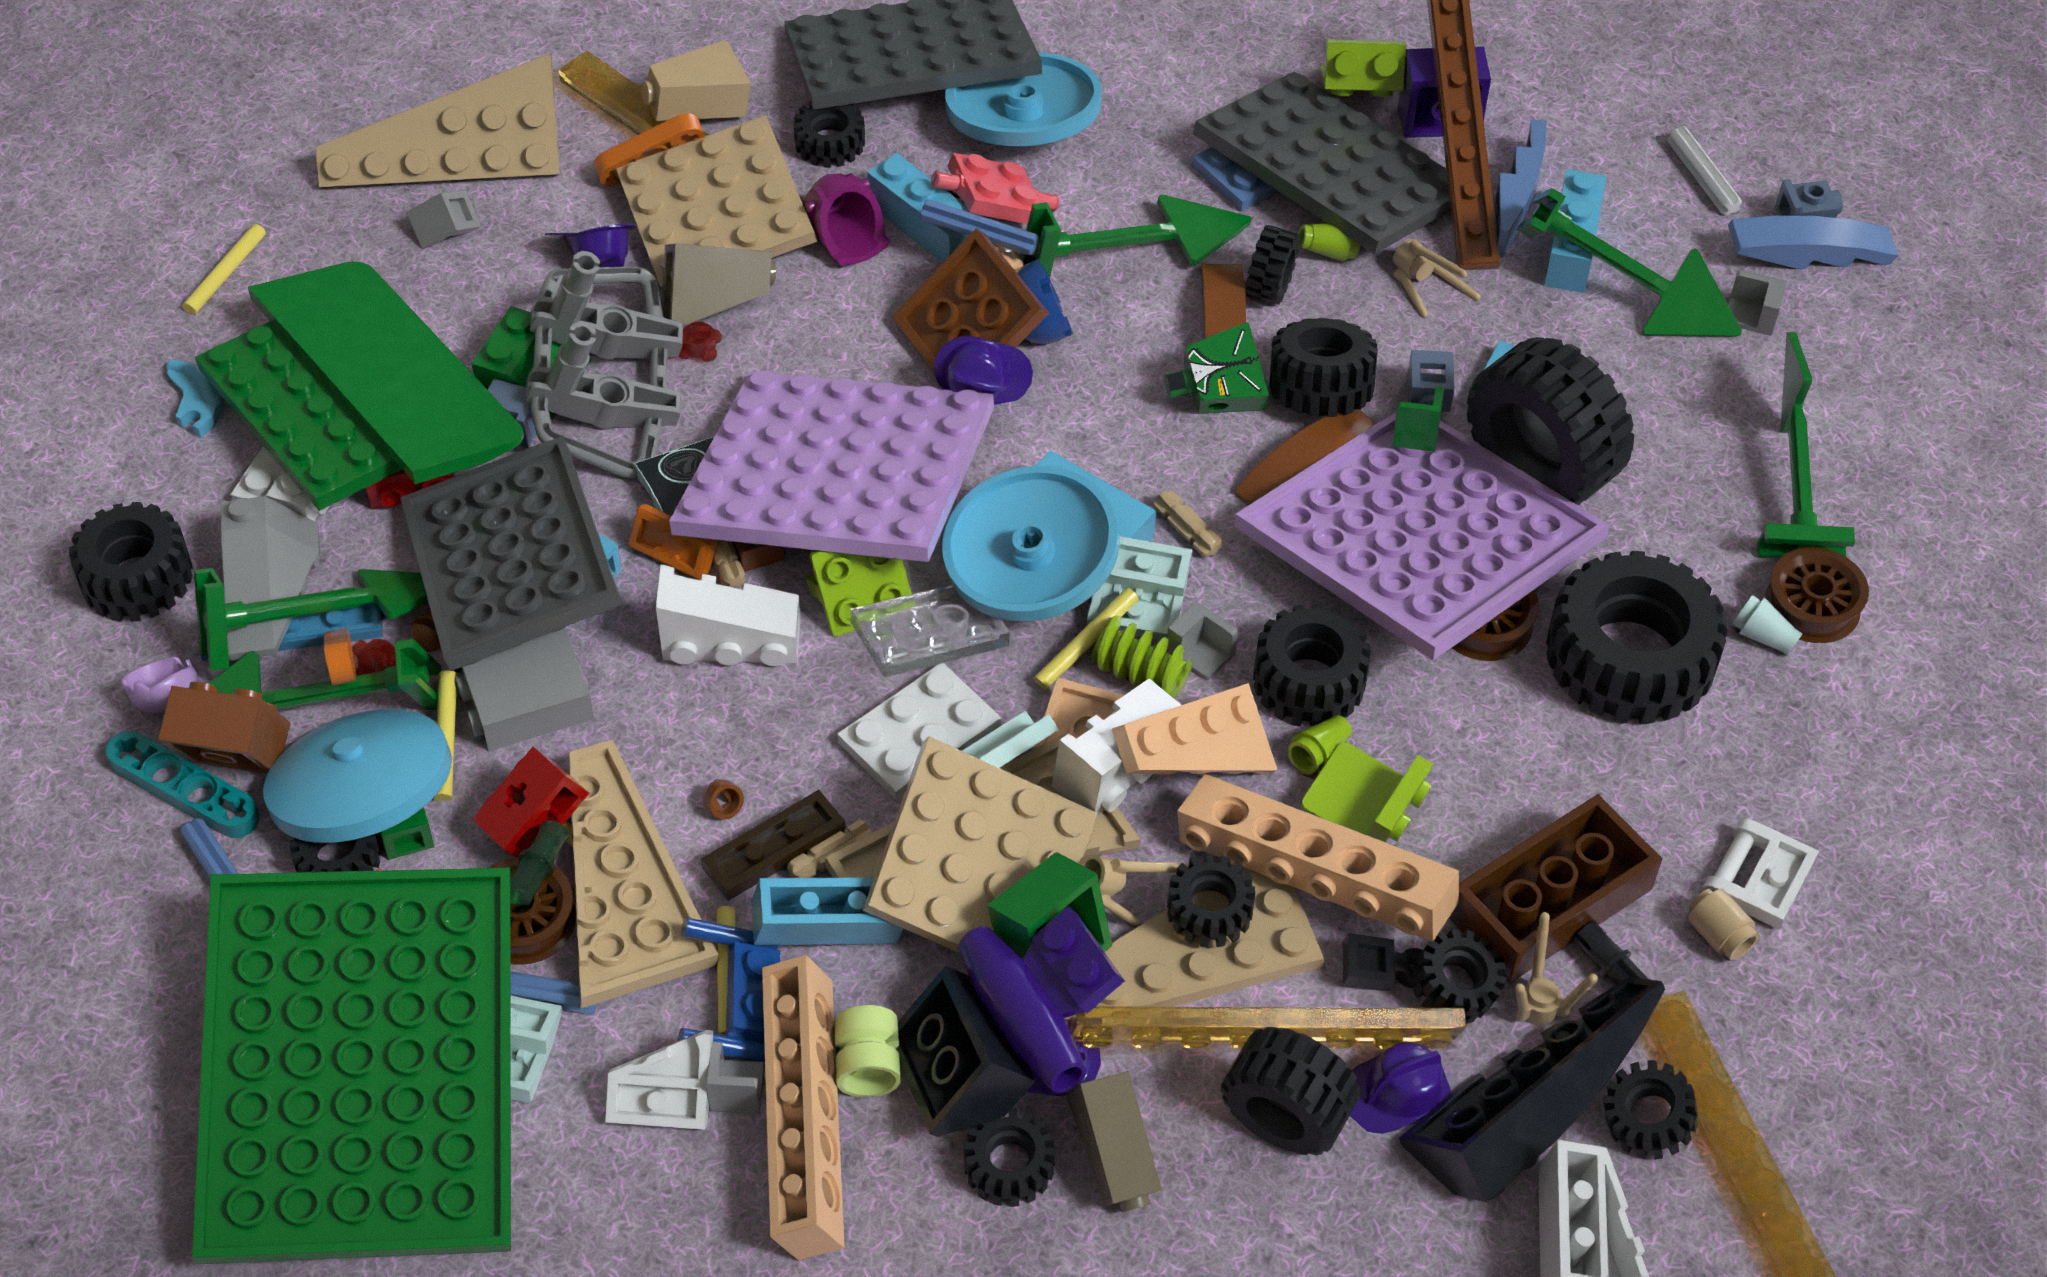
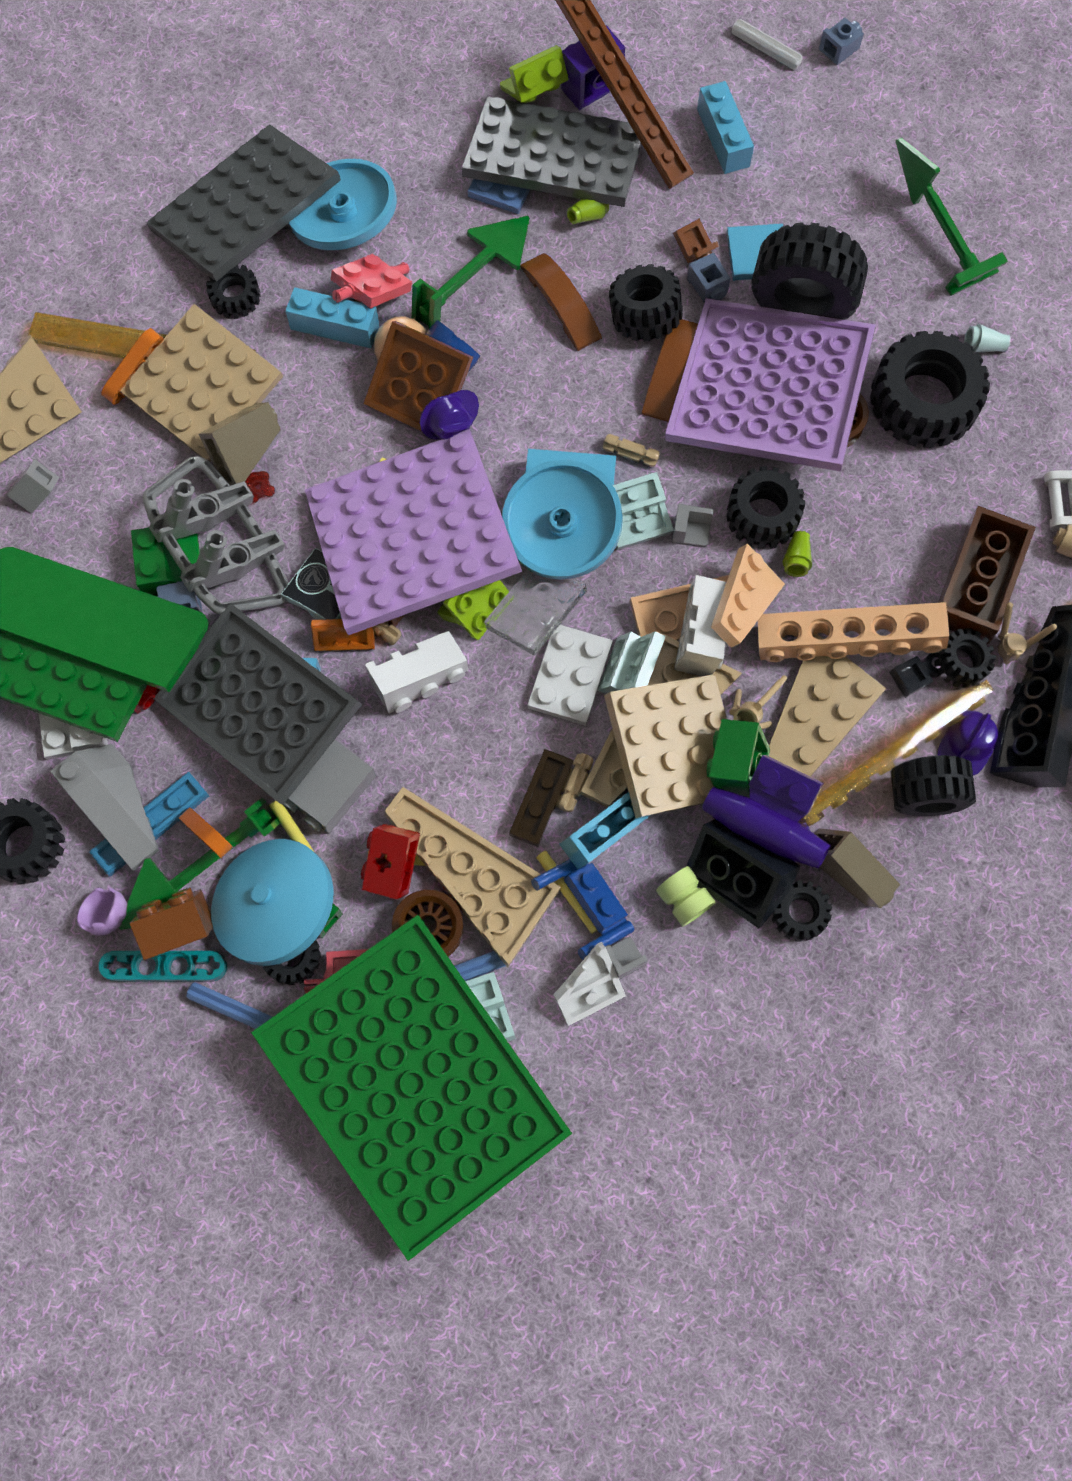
camera: 30 degrees left, 20 degrees up
(374, 656) = (226, 812): clear red plate -> none
(391, 590) = (195, 763): green piece -> none
(424, 634) = (236, 783): dark orange hinge -> none
(537, 862) = (423, 896): clear green axle -> none
(605, 242) = (146, 454): dark purple piece -> none
(698, 83) = (130, 301): tan slope -> none
(730, 792) = (491, 785): dark orange hinge -> none
(802, 1109) = (676, 953): light nougat brick -> none
(846, 218) = (290, 349): magenta helmet -> none
(967, 222) = (385, 316): medium blue axle -> none
(1084, 639) = (627, 561): light yellow bar -> none
(1140, 659) = (667, 556): lime piece -> none
(1206, 923) = (812, 675): black tyre -> none
(1222, 373) = (590, 338): green torso -> none
(1272, 264) = (570, 245): black tyre -> none
(1366, 793) = (848, 574): lime bracket -> none
(1418, 263) = (647, 197): tan plant -> none
(1418, 424) = (728, 314): green panel -> none
(1444, 332) = (694, 241): none -> dark orange bracket
(1518, 188) = (673, 107): medium blue slope -> none
(1606, 954) = (1034, 599): black axle -> none
(1687, 303) = (818, 144): green piece -> none
(1756, 301) = (853, 124): light grey panel -> none
(1801, 239) = (858, 62): medium blue slope -> none
(1818, 593) = (1007, 291): reddish brown wheel -> none

